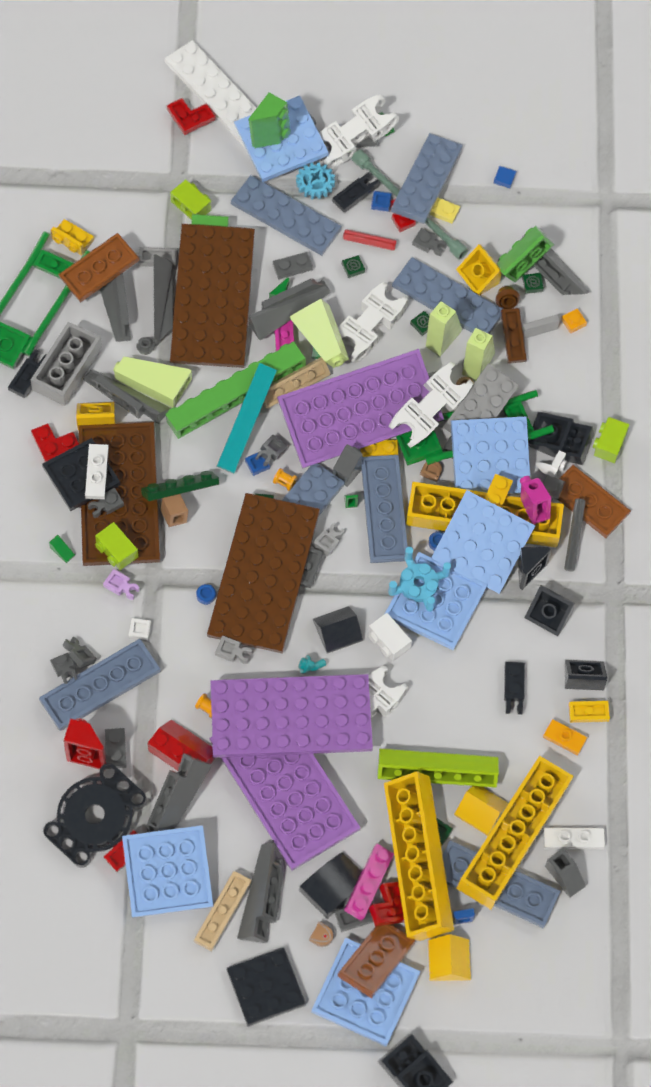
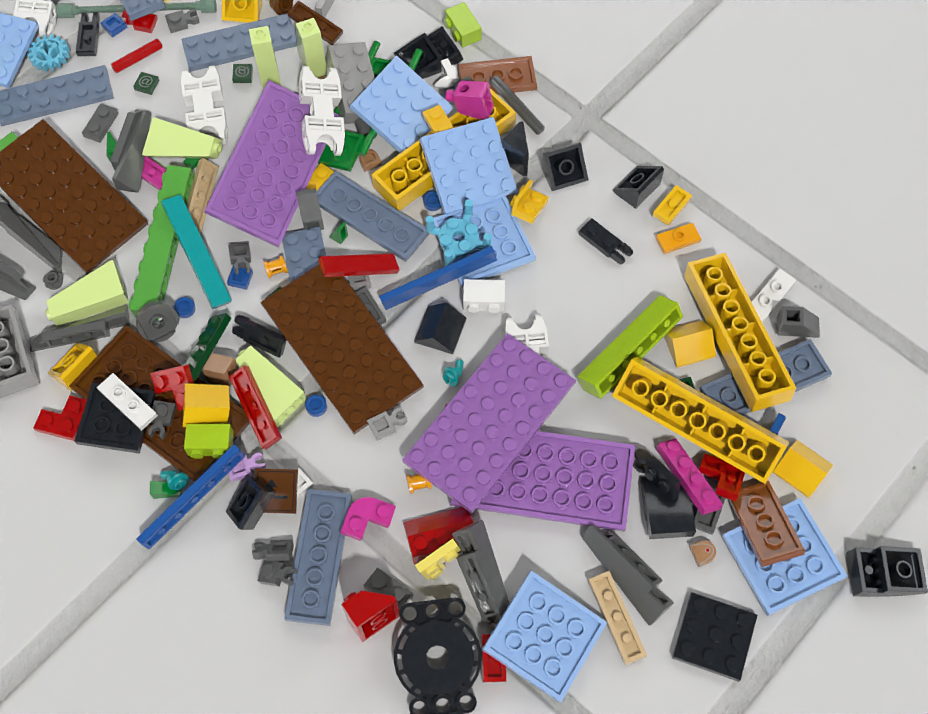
camera: 45 degrees left, 0 degrees up
(69, 569) = (191, 497): none -> blue tile
(72, 549) = (175, 480): none -> teal plate
(97, 610) = (249, 503): none -> black slope
(120, 619) = (285, 484): none -> reddish brown piece
(138, 522) = (206, 404): none -> yellow slope
(139, 492) = (174, 380): none -> plate
(154, 686) = (366, 510): none -> dark pink plate
(158, 761) = (434, 564): none -> light yellow plate
(166, 555) = (255, 407): none -> red tile
(176, 430) = (154, 310): none -> dark grey plate
(190, 555) = (278, 391): none -> yellowish green slope
(201, 447) = (184, 307): none -> blue tile
(222, 513) = (259, 336): none -> black hinge
(333, 533) = (358, 265): none -> red tile
(350, 856) = (657, 473): none -> black hinge
(372, 594) = (438, 278): none -> blue tile
(494, 608) = (528, 203): none -> yellow bracket

